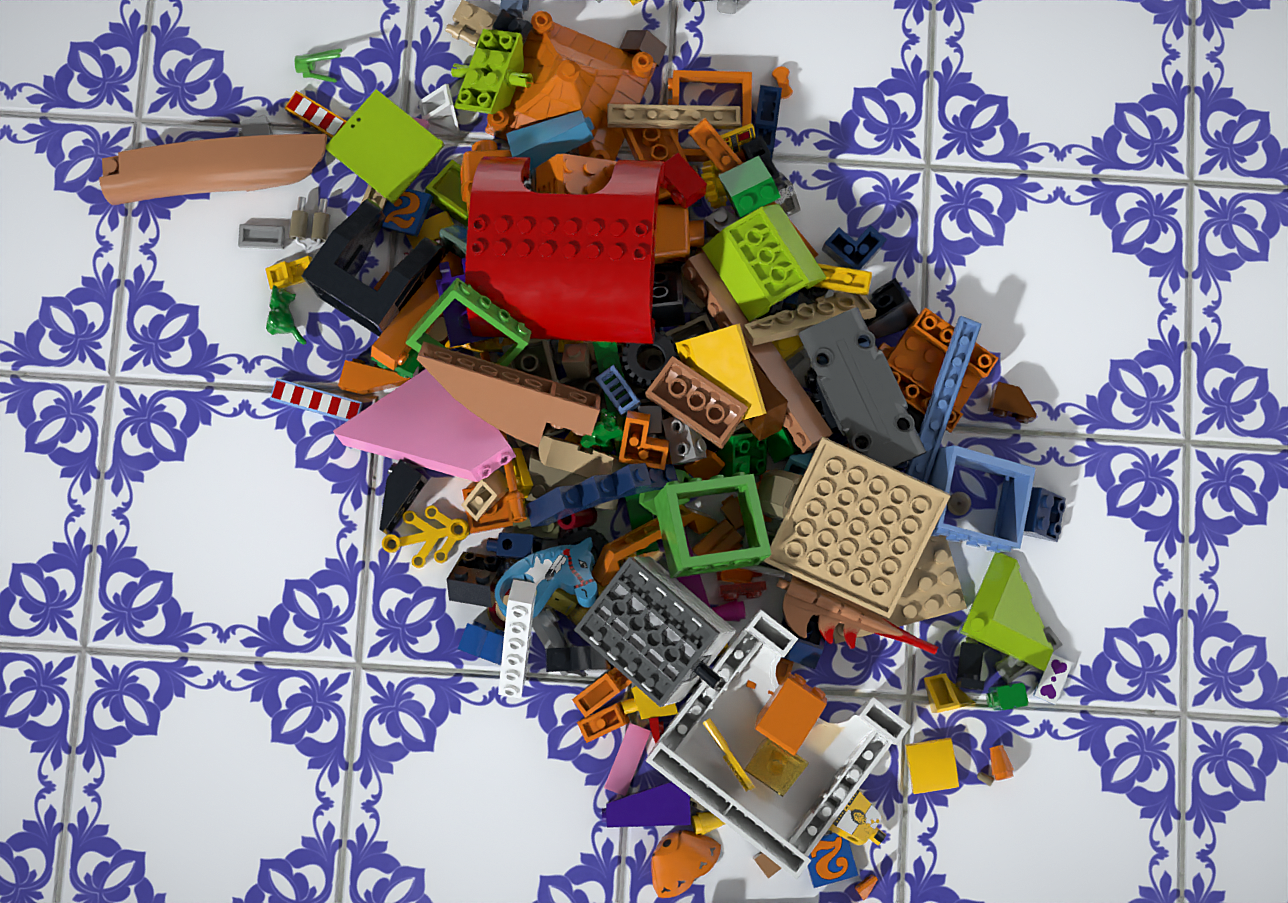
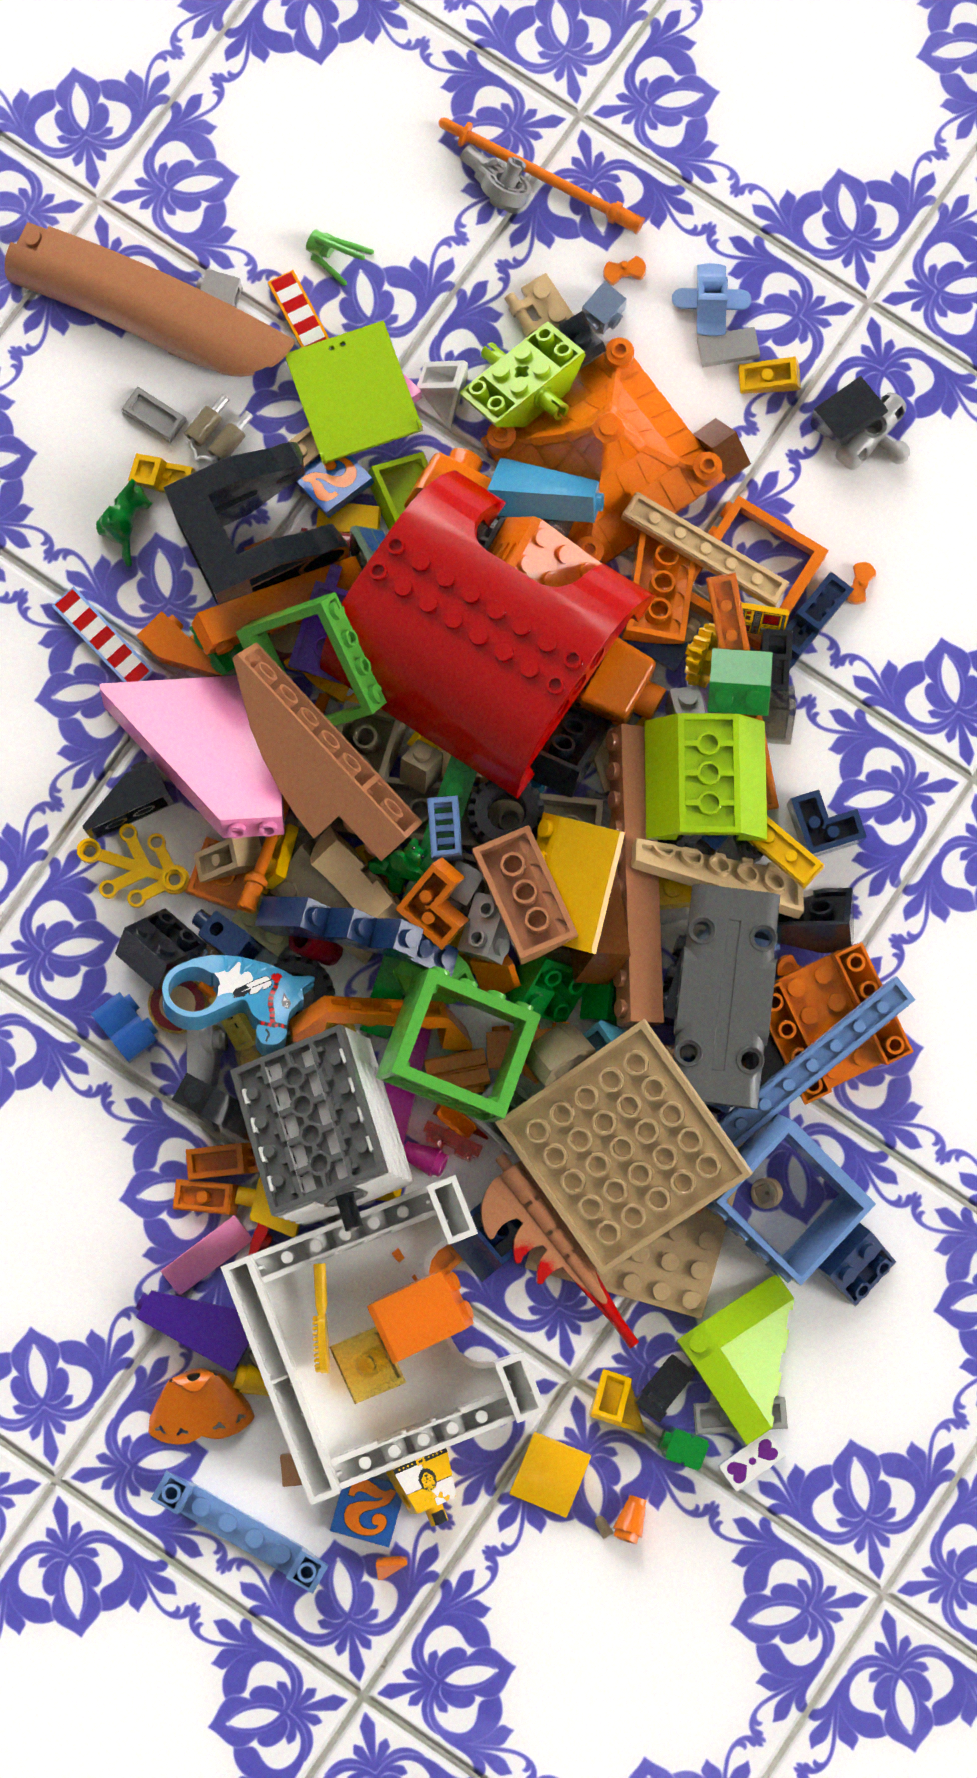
camera: 30 degrees right, 0 degrees up
(517, 638) = (160, 1041): white brick -> none
(683, 182) = (665, 631): red brick -> none
(1011, 402) = (899, 1111): reddish brown slope -> none

